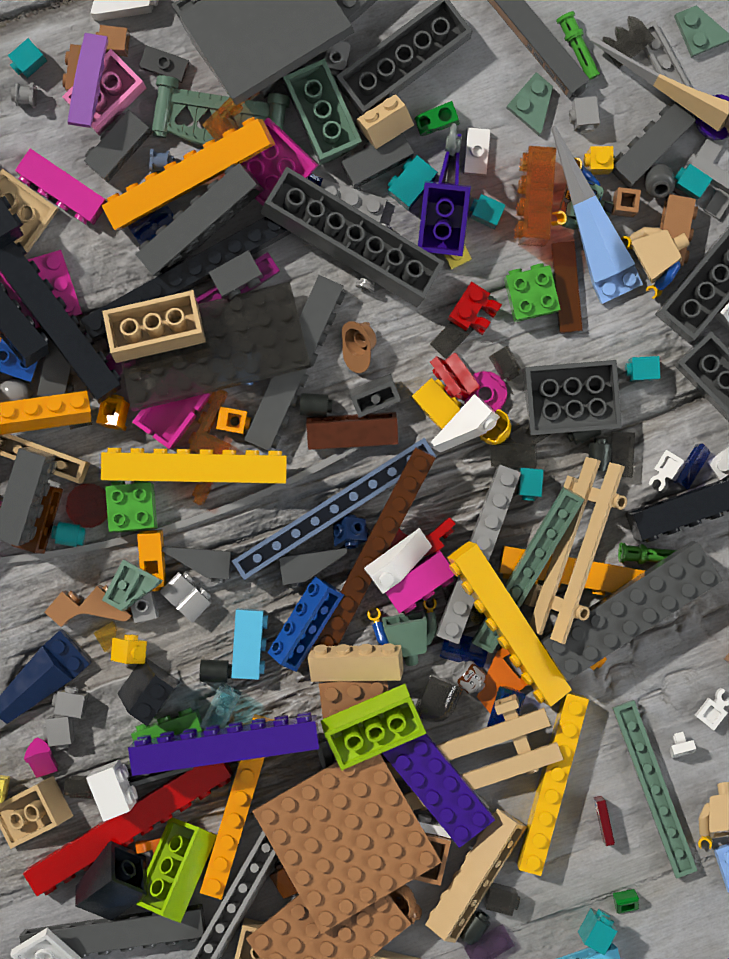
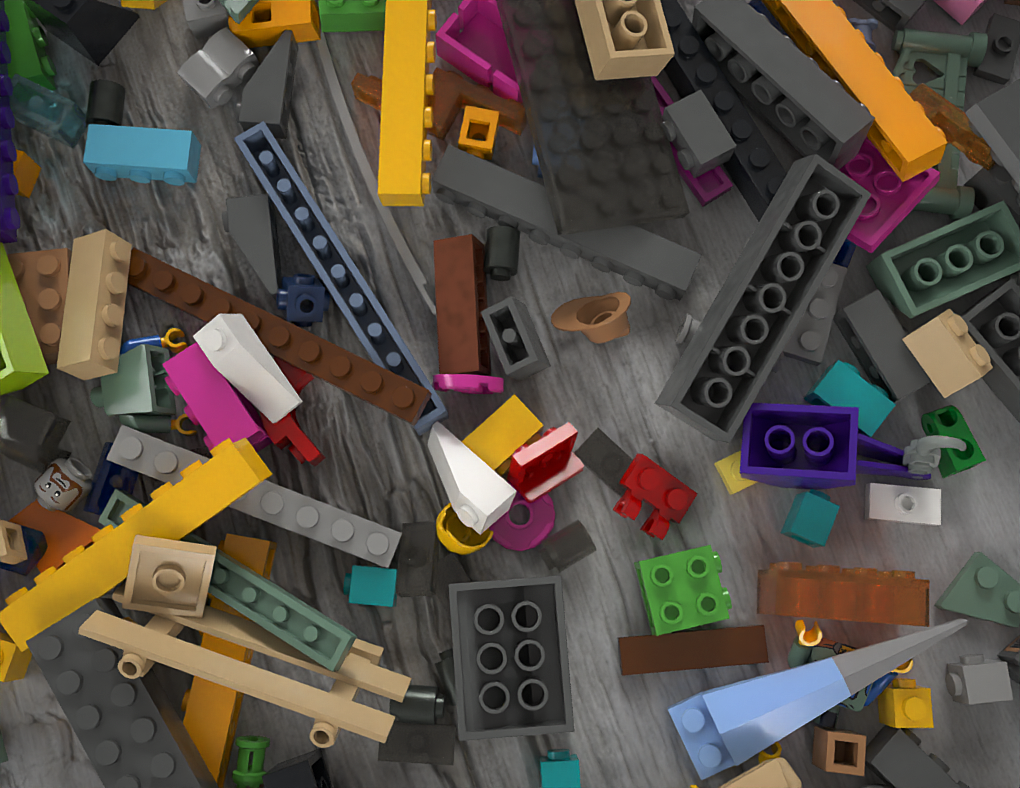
camera: 90 degrees right, 10 degrees down
(305, 624) = (164, 232): blue brick -> none
(405, 425) = (468, 383): none -> dark pink tile
(530, 598) = (168, 576): none -> tan plate

